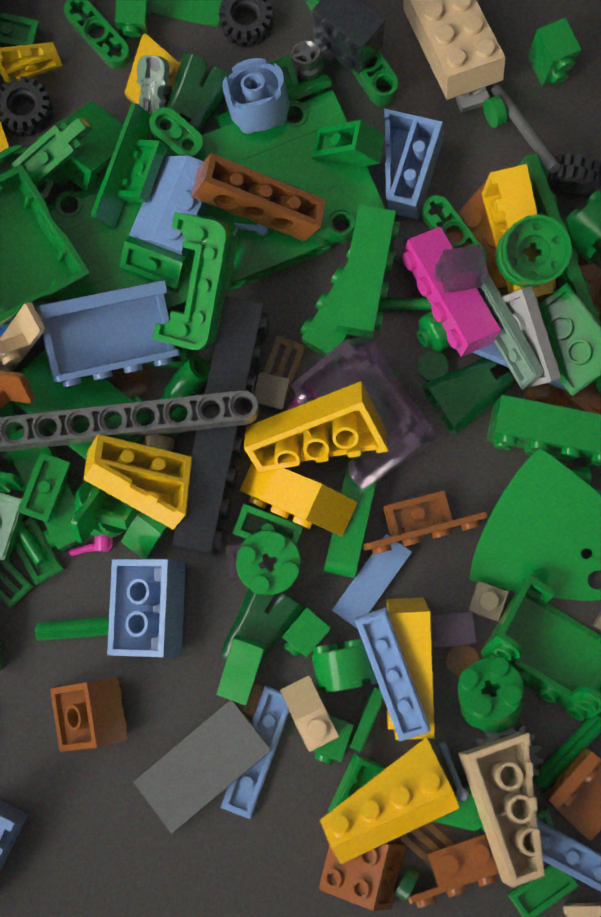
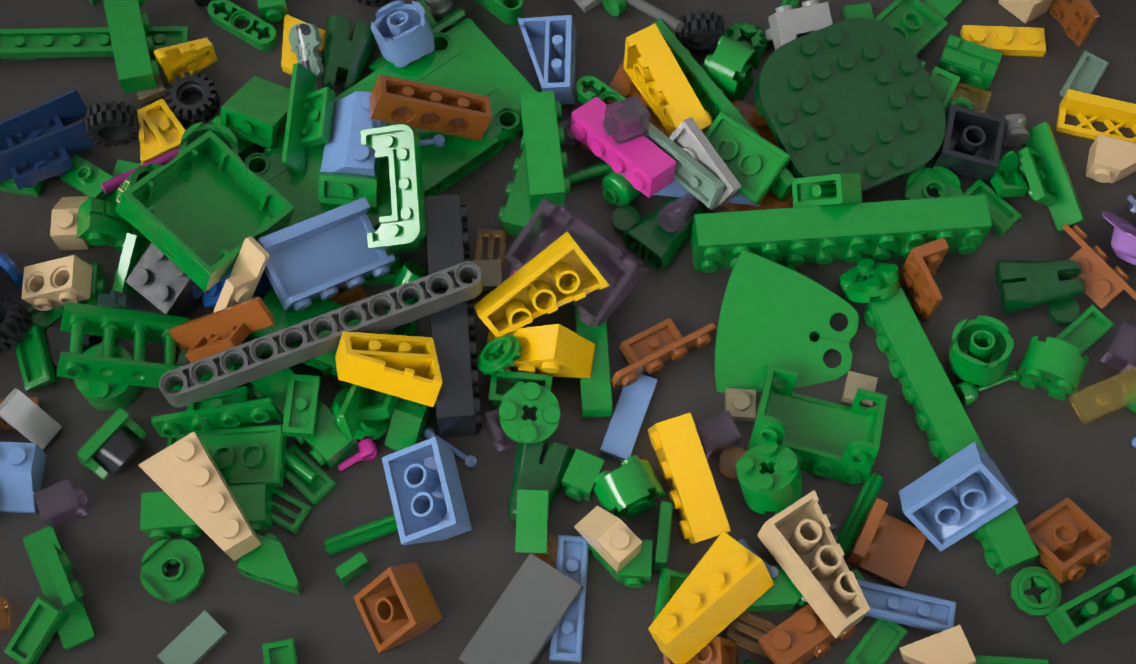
camera: 20 degrees left, 15 degrees down
(53, 149) = (235, 112): green hinge -> none
(55, 663) = (353, 568): none -> green tile
(179, 133) = (342, 80): green plate -> none
(200, 582) = (470, 461): none -> medium blue hinge
(255, 483) = (499, 355): none -> green gear
(349, 144) = (496, 52): green slope -> none
(392, 674) = (674, 479): medium blue tile -> none
(485, 382) = (674, 215): none -> clear purple cone
(546, 238) = (690, 74): green wheel -> none

